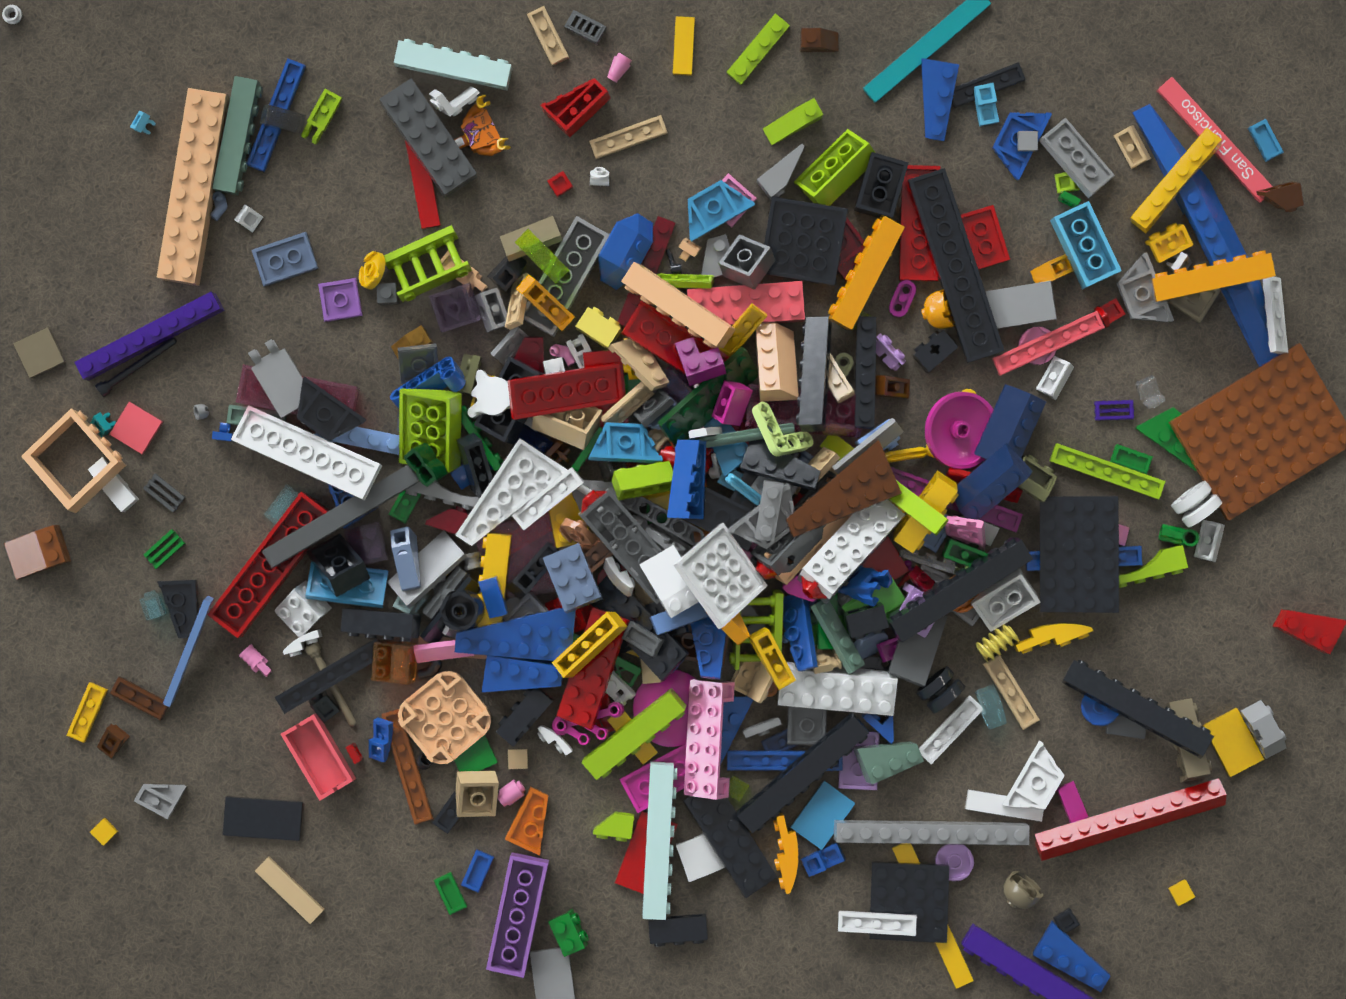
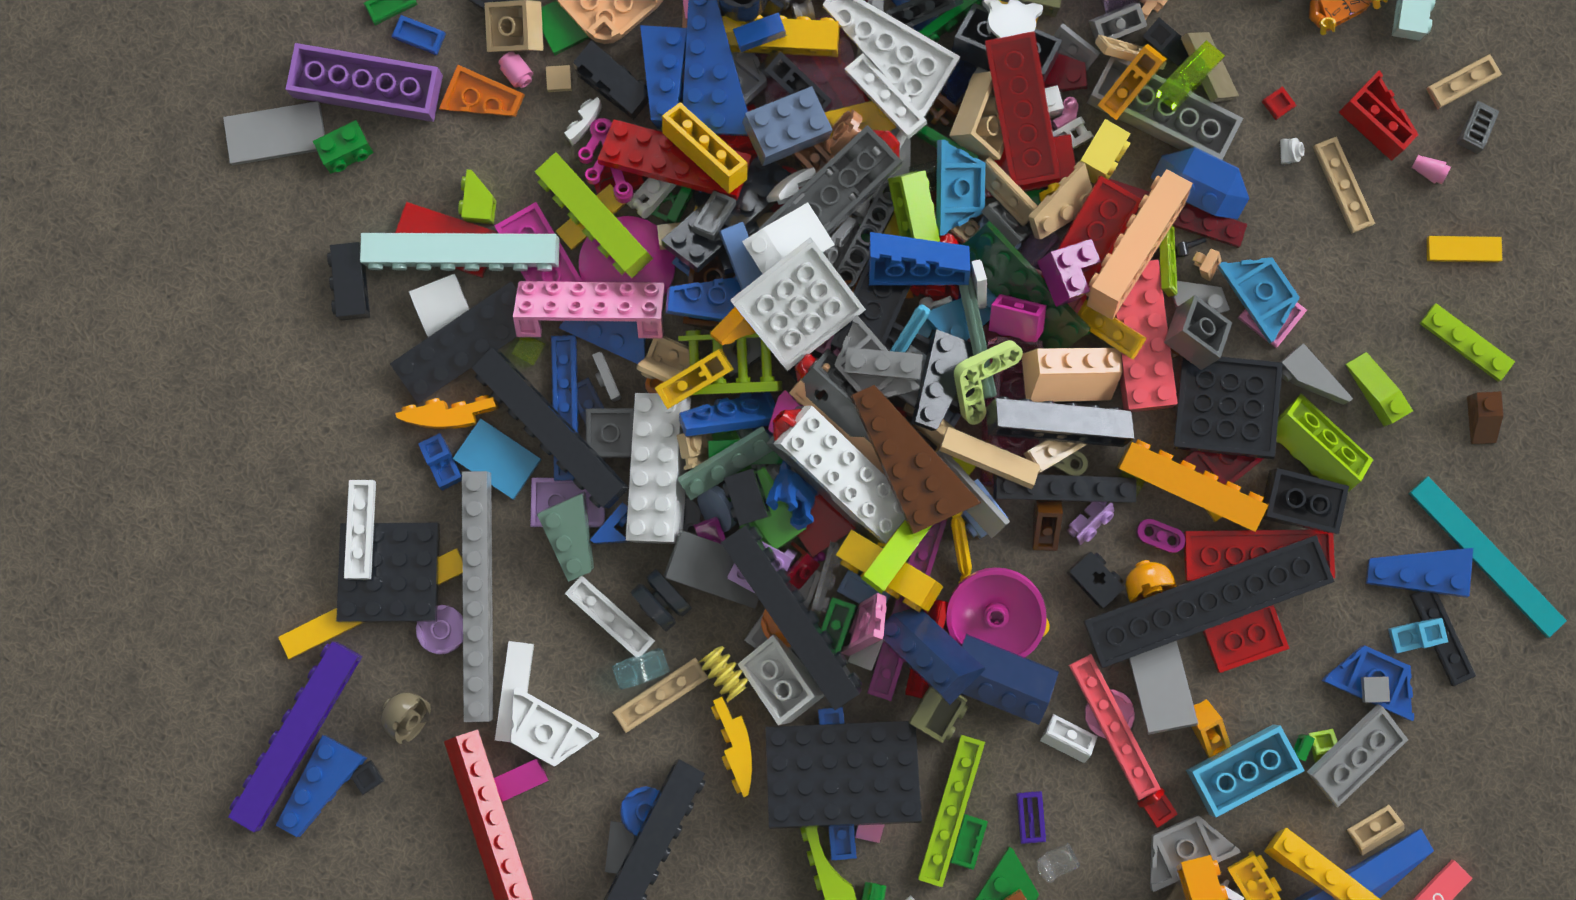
camera: 90 degrees right, 5 degrees down
(843, 431) = (989, 457): none -> tan tile

